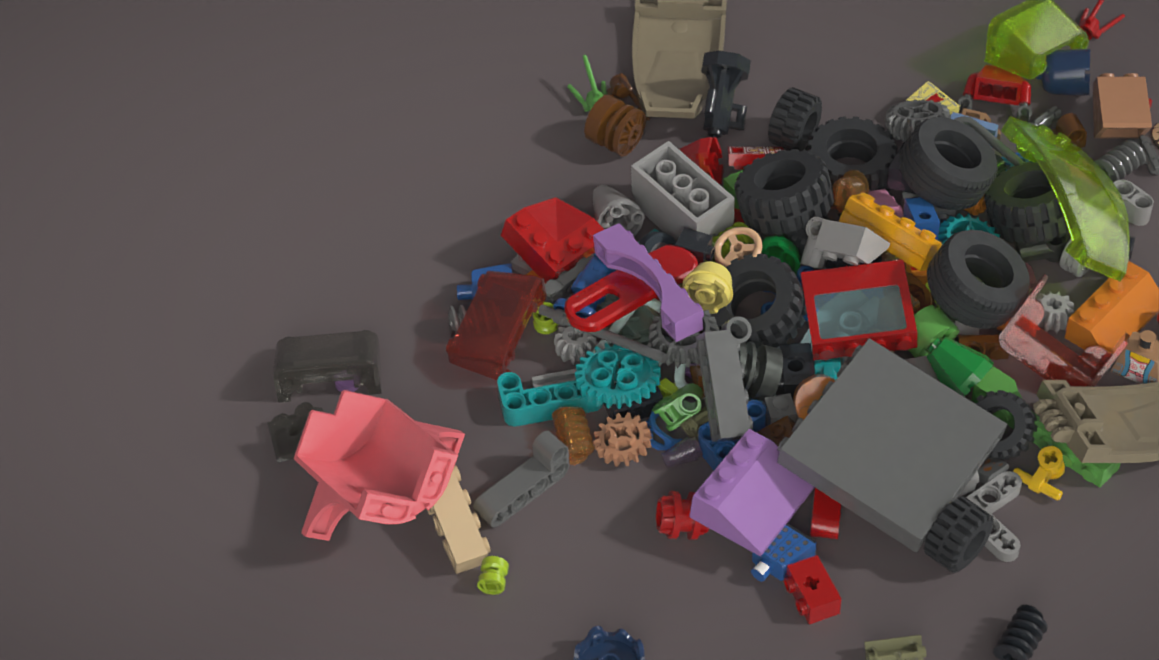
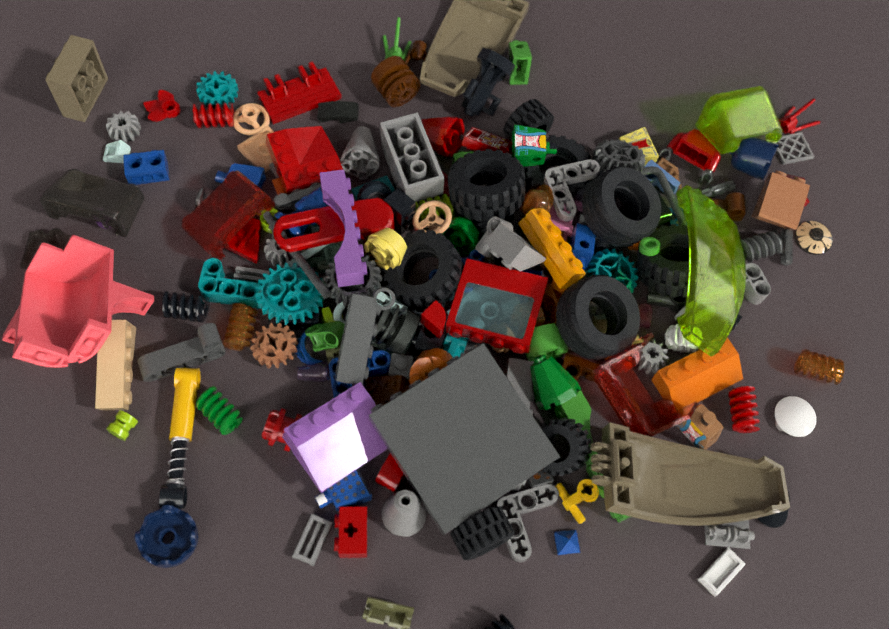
camera: 10 degrees right, 15 degrees up
(239, 239) = (77, 78): none -> dark tan slope
(315, 278) = (123, 127): none -> light grey gear
(319, 308) = (115, 151): none -> light aqua slope
(348, 243) = (162, 108): none -> red plate
(368, 309) = (147, 168): none -> blue brick
(405, 203) = (217, 89): none -> teal gear
(416, 230) = (214, 116): none -> red piece
(460, 220) = (249, 115): none -> light nougat piece
(488, 248) = (256, 149): none -> light nougat tile
(497, 184) = (298, 97): none -> red hinge
(498, 434) = (185, 308): none -> black piece
(532, 349) = (247, 241): none -> red wing
(545, 514) = (182, 420): none -> piece
(565, 178) = (340, 110): none -> pearl dark grey slope
(595, 524) = (218, 411): none -> green piece
(754, 51) = (519, 55): none -> bright green torso
(770, 634) = (304, 558): none -> light grey tile
(796, 346) = (434, 319): none -> red brick
(813, 134) = (530, 145): none -> torso
(859, 548) = (404, 513): none -> light grey cone
(868, 162) = (563, 180): none -> light grey beam
(999, 193) = (649, 246): none -> bright green tile
(1053, 523) = (567, 542): none -> blue slope
(1078, 281) = (676, 341): none -> white gear
(1118, 44) = (795, 159): none -> light grey window

